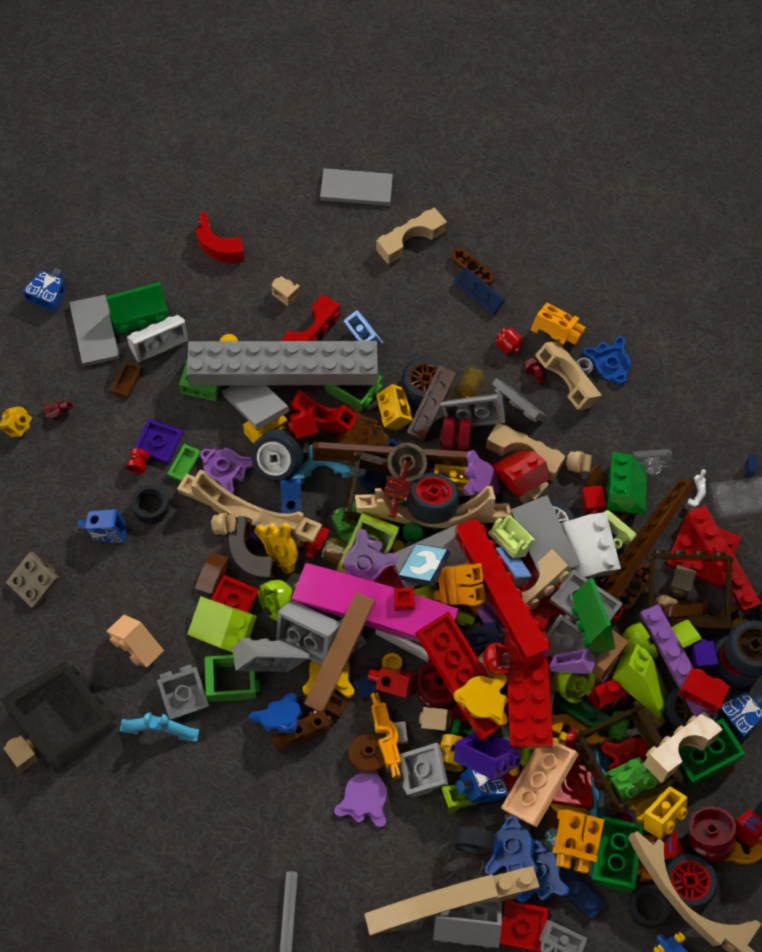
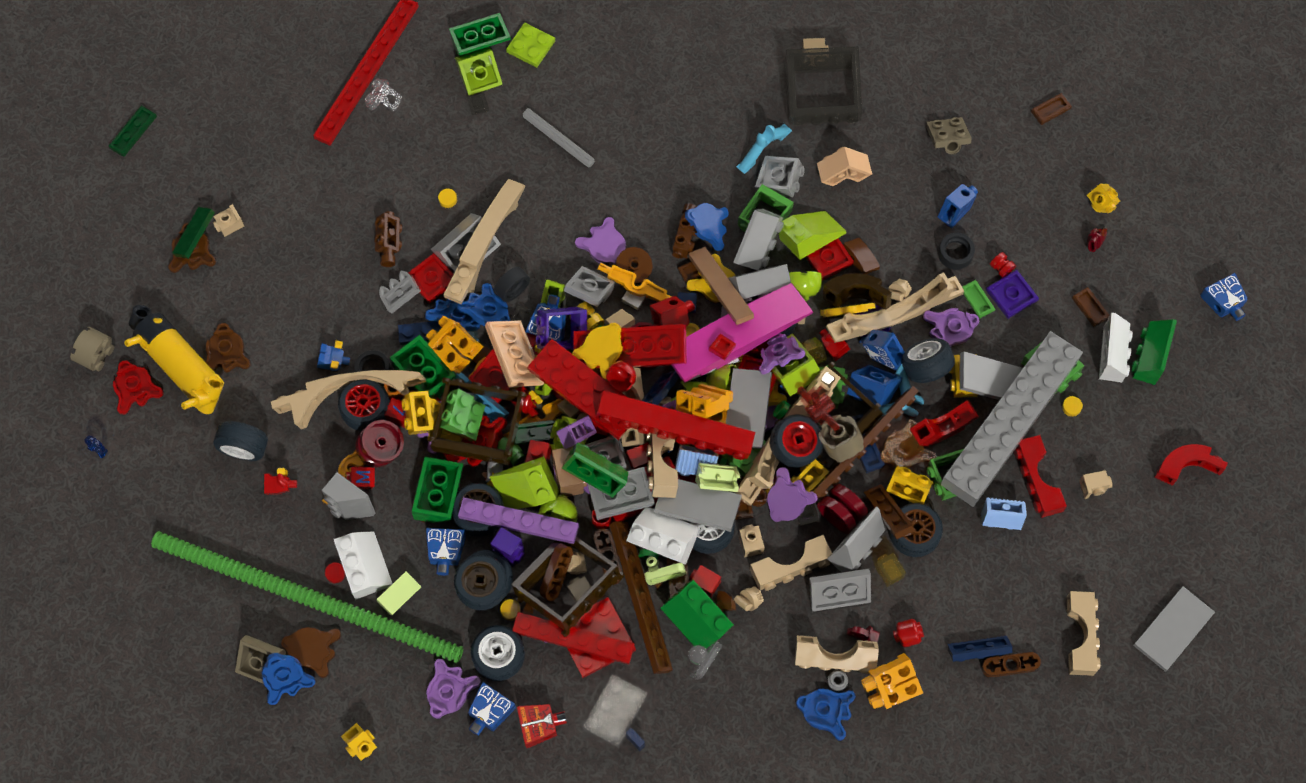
camera: 130 degrees right, 5 degrees up
(94, 330) = (1147, 305): light grey tile -> none
(302, 424) = (940, 394): red brick -> none
(326, 484) = (874, 384): none -> blue slope
(424, 564) = (741, 385): tile -> none
(522, 471) = (773, 535): red slope -> none
(686, 634) = (533, 546): lime slope -> none
(698, 733) = (450, 431): tan arch -> none
(701, 491) = (656, 688): white piece -> none
(704, 690) = (478, 510): red brick -> none

